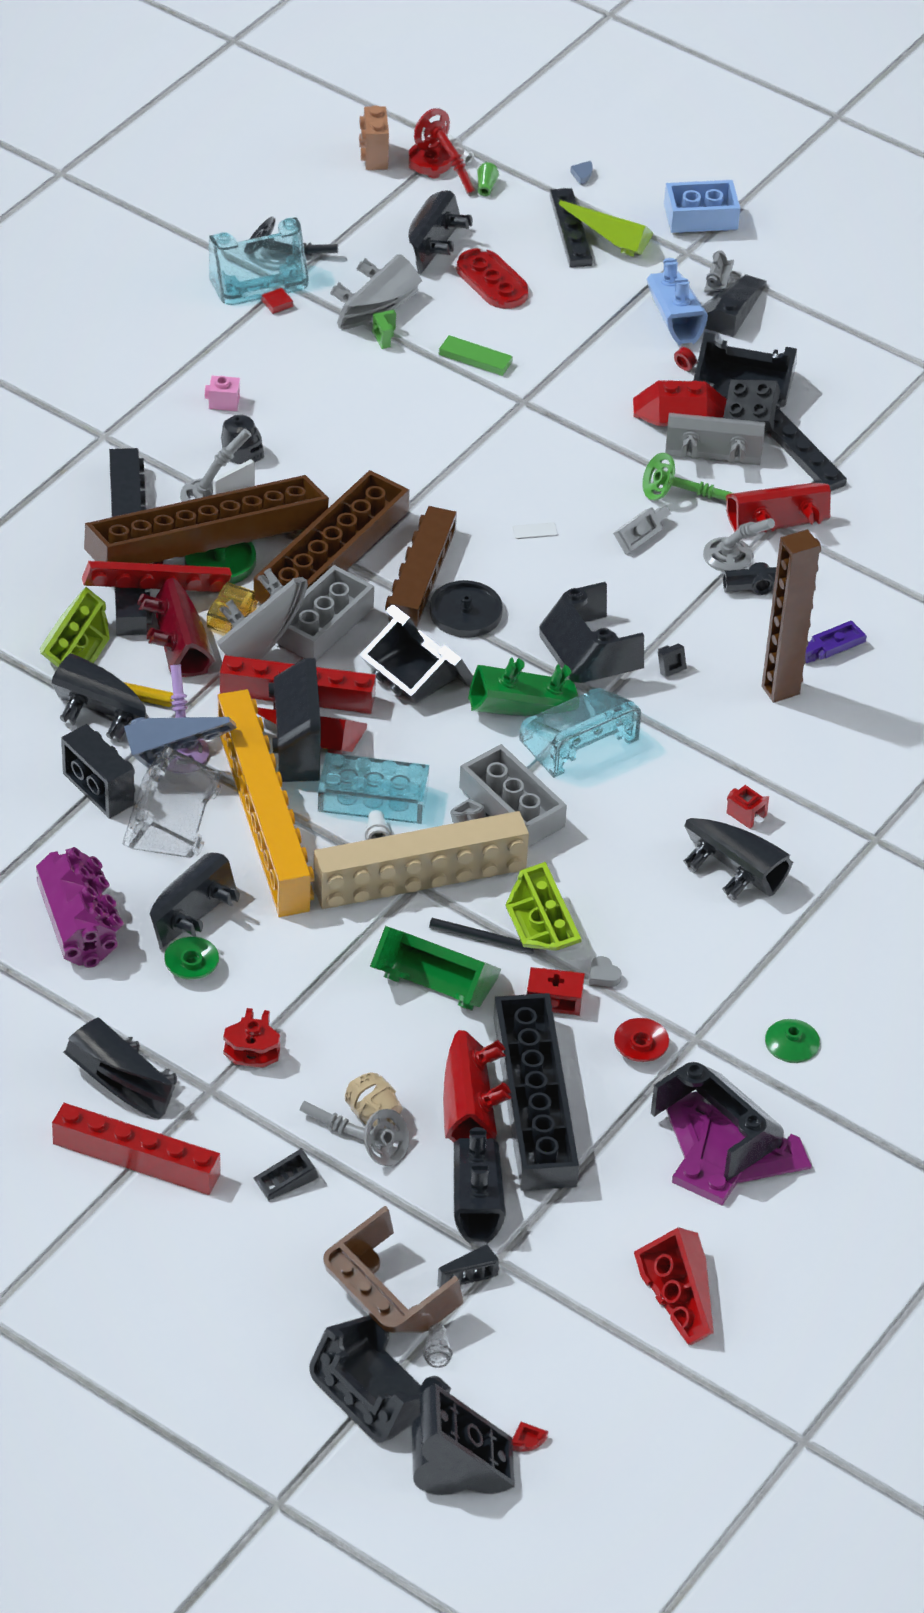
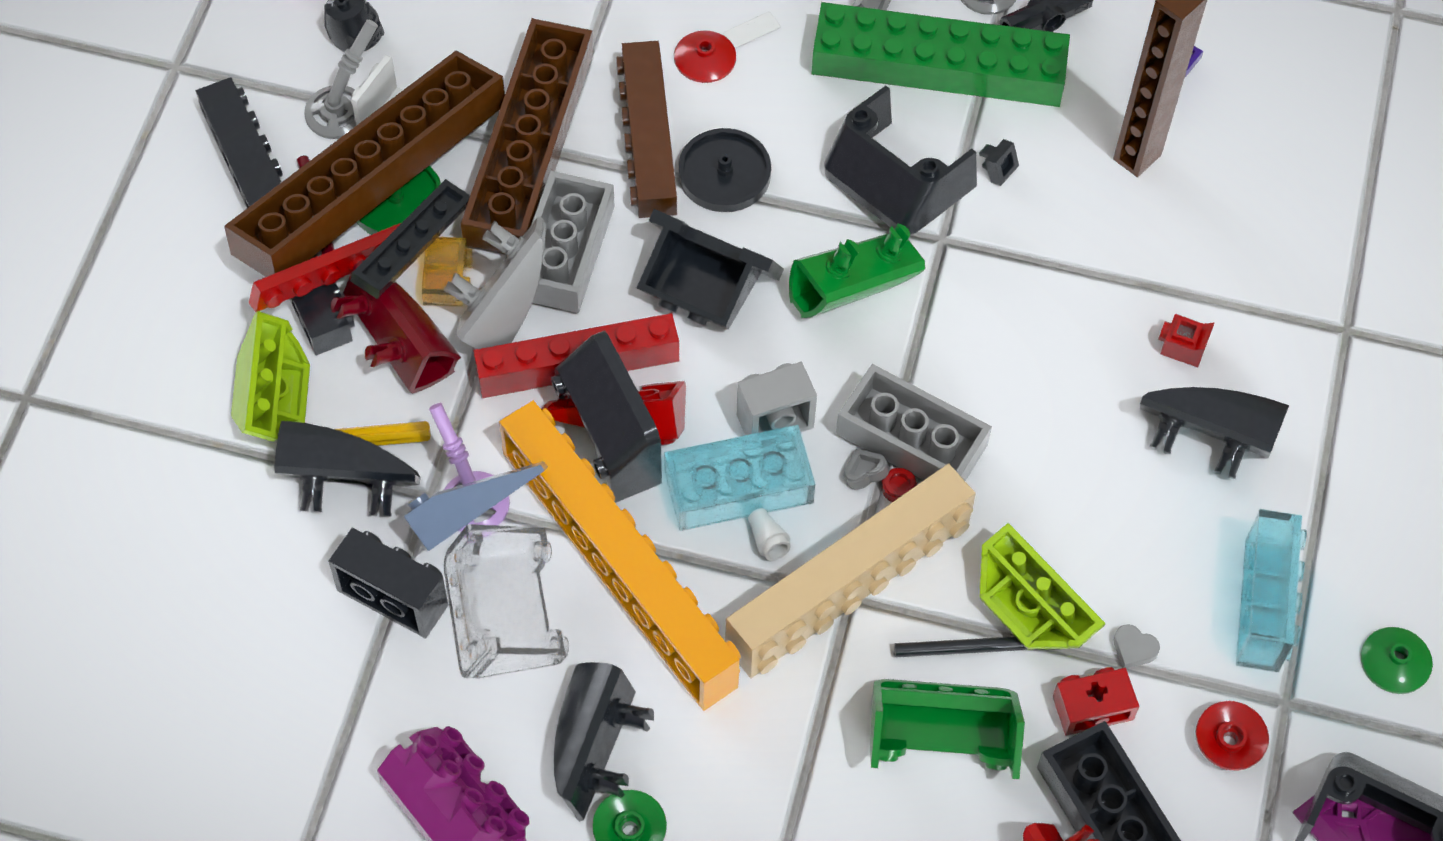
camera: 20 degrees left, 15 degrees up
(212, 575) = (410, 239): none -> black plate
(423, 744) = (776, 400): none -> light grey brick
(490, 537) = (705, 65): none -> red dish
(564, 729) = (942, 299): clear light blue windscreen -> none
(664, 581) = (940, 54): none -> green brick
(715, 962) = (1270, 591): none -> clear light blue brick

